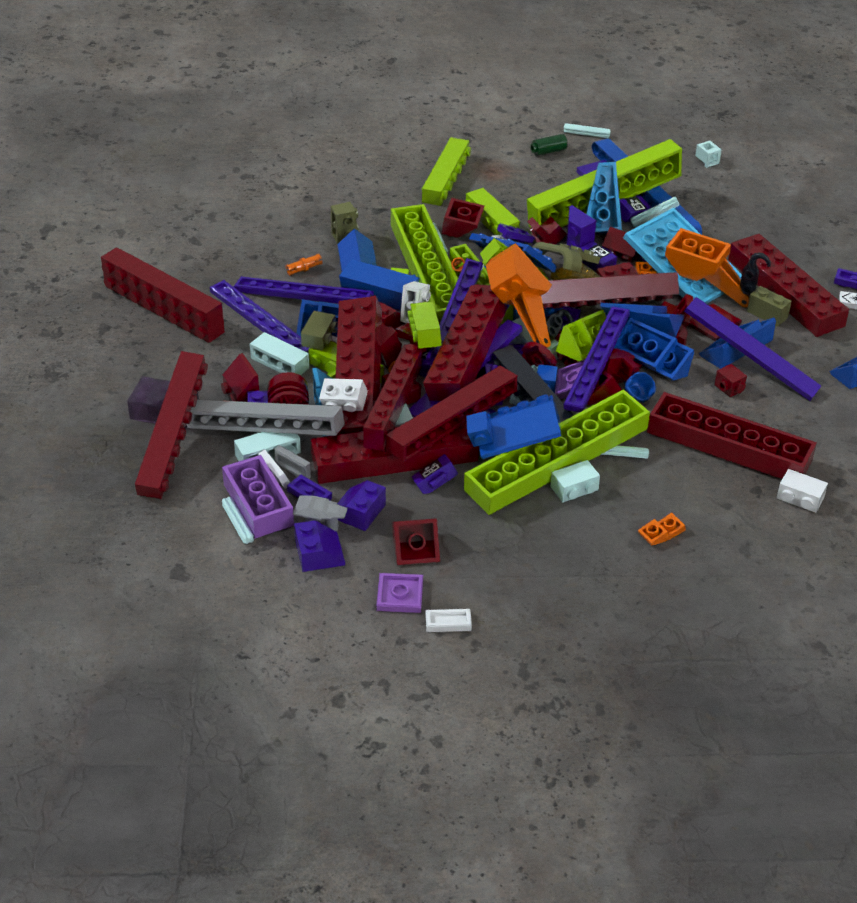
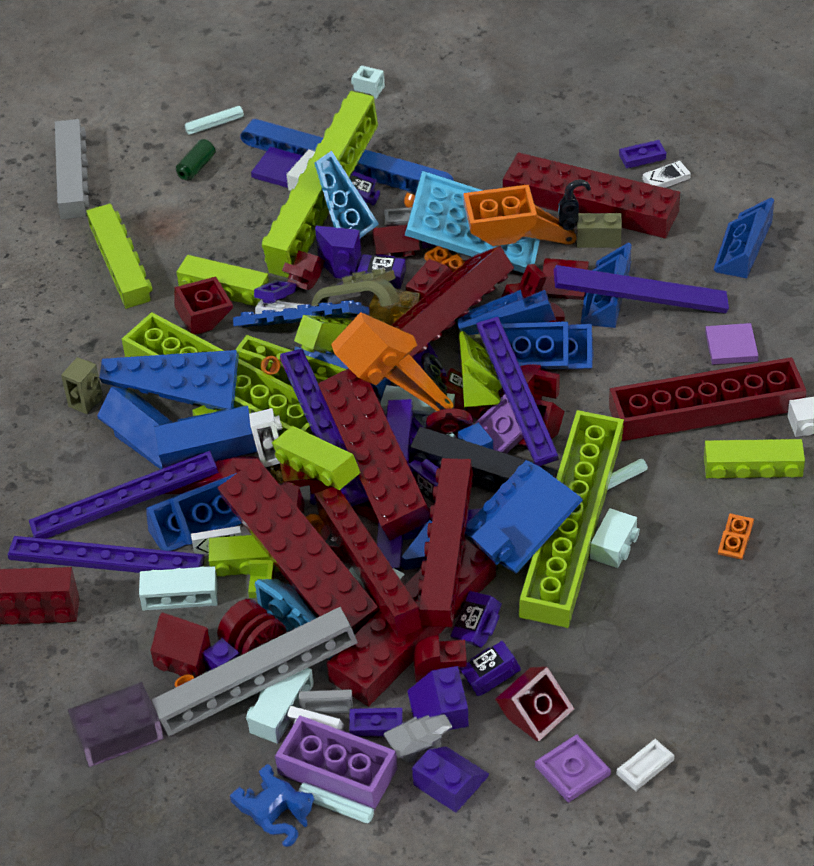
camera: 35 degrees left, 5 degrees up
(170, 425) = (169, 745): dark red brick -> none
(199, 495) = (271, 802): none -> blue animal
(304, 264) = (84, 462): orange pin -> none
(318, 330) = (205, 533): olive brick -> none
(345, 393) = (326, 592): white brick -> none
(384, 475) = (434, 654): none -> dark red brick
(400, 245) = (184, 377): none -> blue wing
(411, 506) = (490, 668): none -> dark purple piece
(470, 114) = (70, 169): none -> light grey brick
(640, 386) = (573, 396): blue hair -> none
(654, 212) = (390, 183): light aqua axle -> none
(726, 491) = (754, 458): none -> lime brick
(730, 380) = (643, 335): dark red brick -> none
(791, 418) = (731, 343): none -> medium lavender tile

